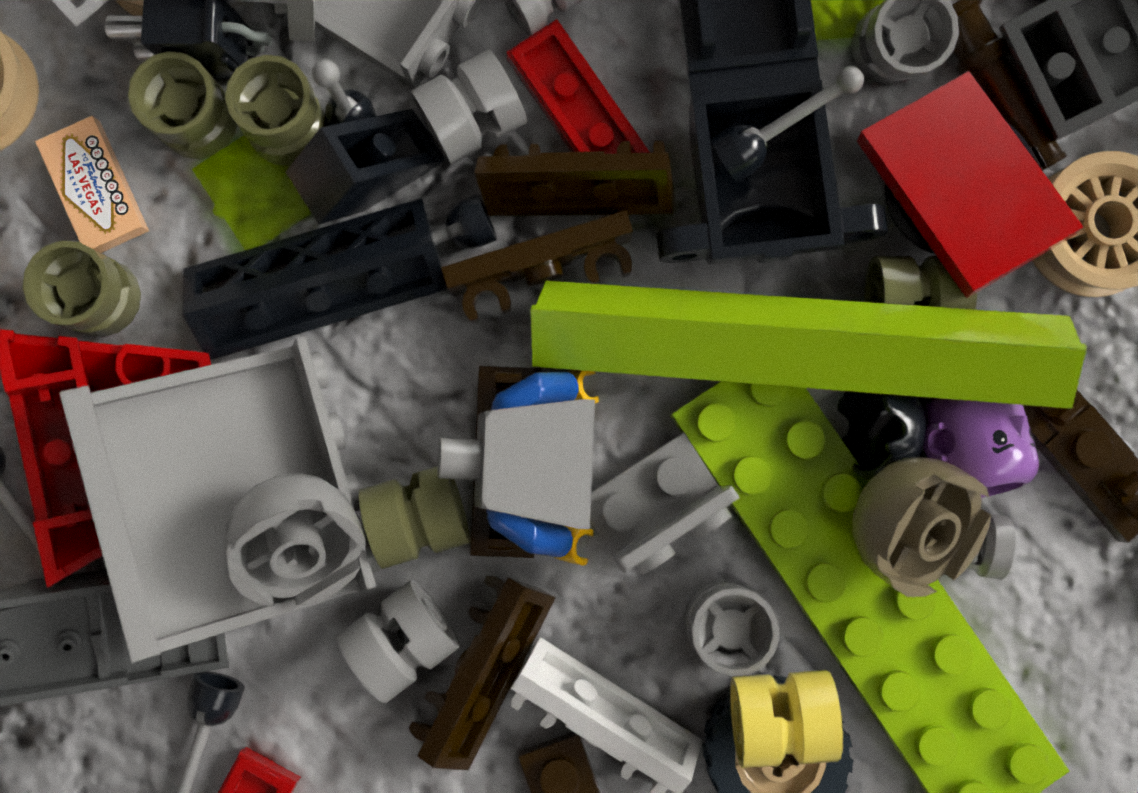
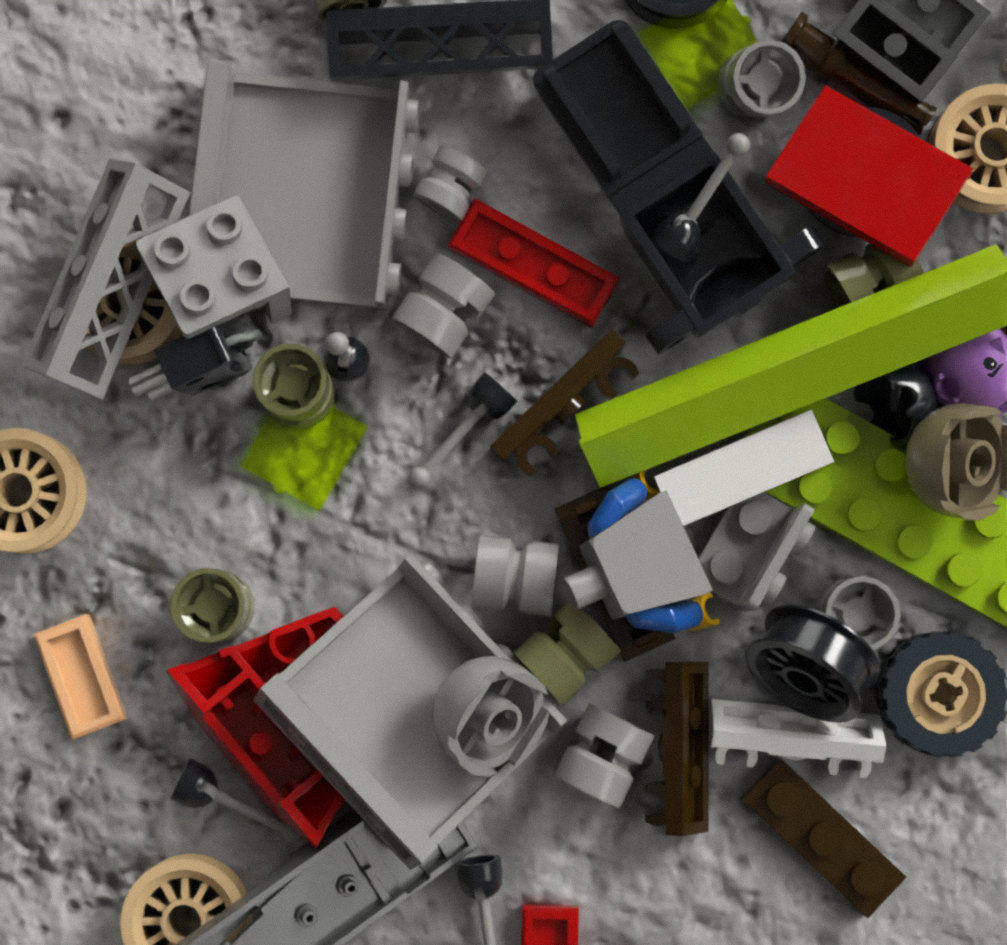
camera: 20 degrees left, 0 degrees up
(92, 185) = (167, 519): tile -> none
(181, 105) = (216, 419): olive wheel -> none
(313, 286) = (392, 510): black fence -> none
(362, 163) = (381, 393): black slope -> none
(395, 408) = (514, 575): none -> light grey wheel
(576, 182) = (560, 324): dark brown plate -> none
(659, 657) = (813, 663): none -> black wheel
(690, 420) = (746, 468): none -> white tile
(786, 718) = (933, 660): light yellow wheel -> none

